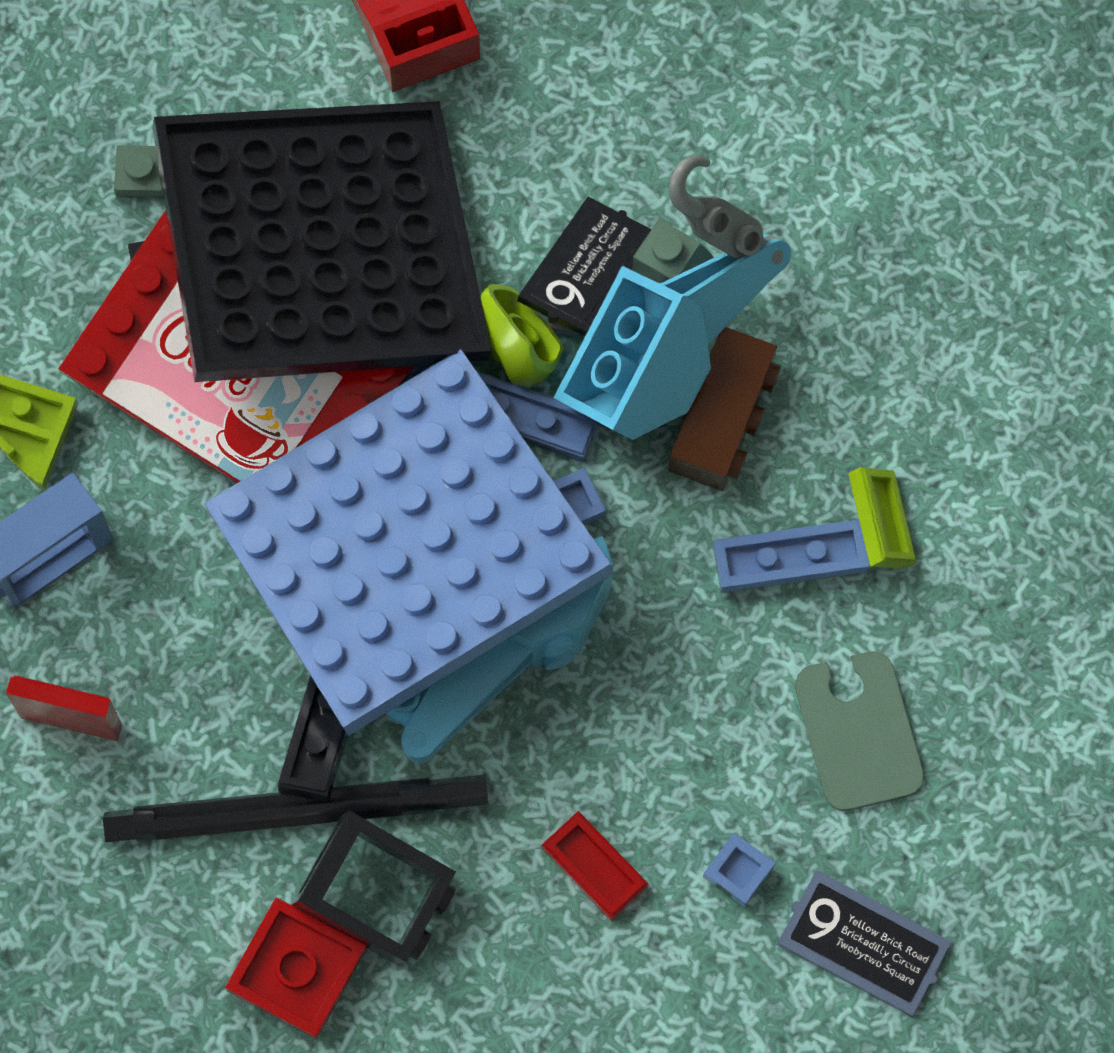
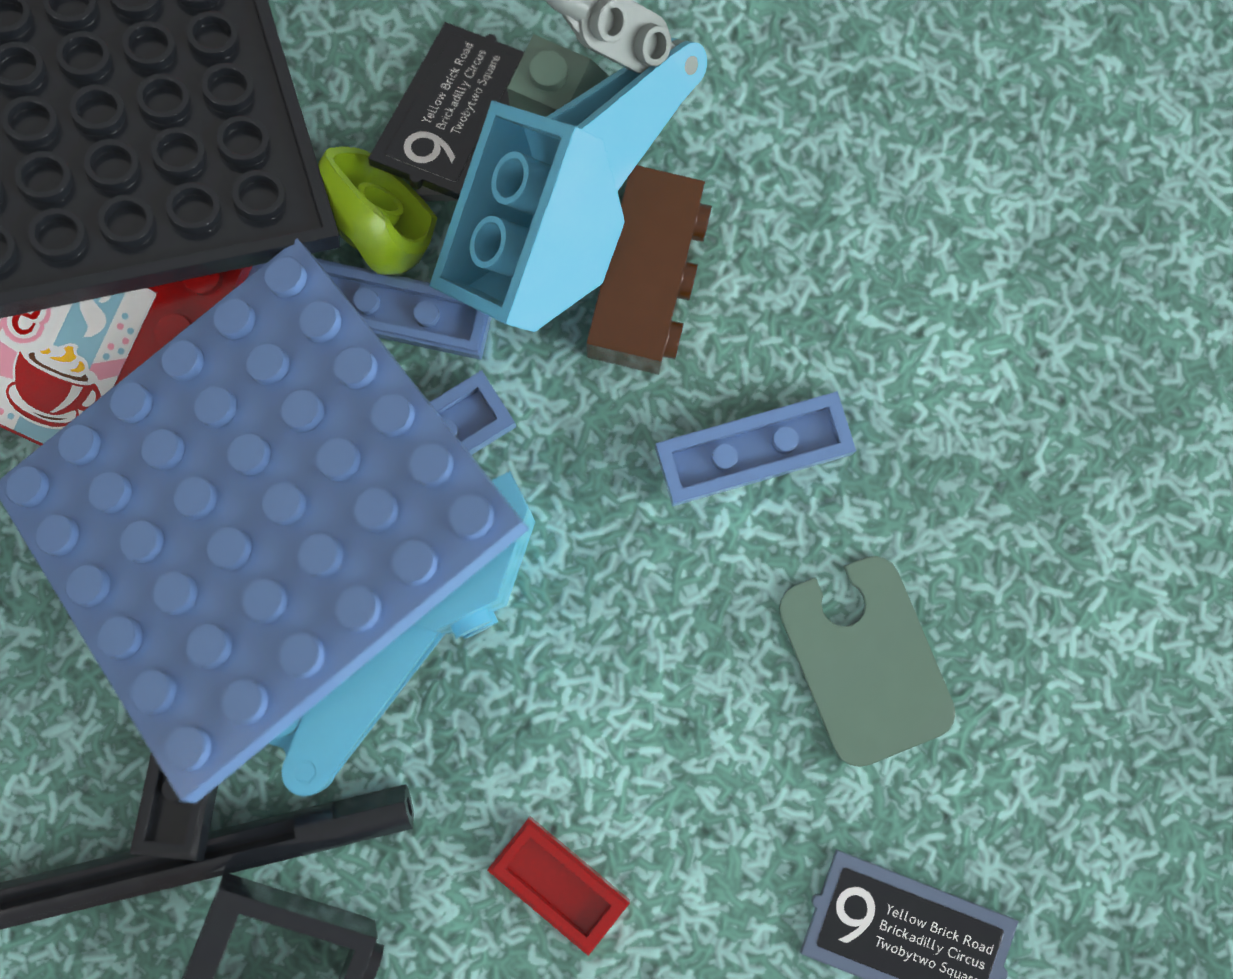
camera: 10 degrees left, 10 degrees up
(739, 870) = (742, 870): medium blue plate -> none
(882, 518) = (862, 385): lime tile -> none

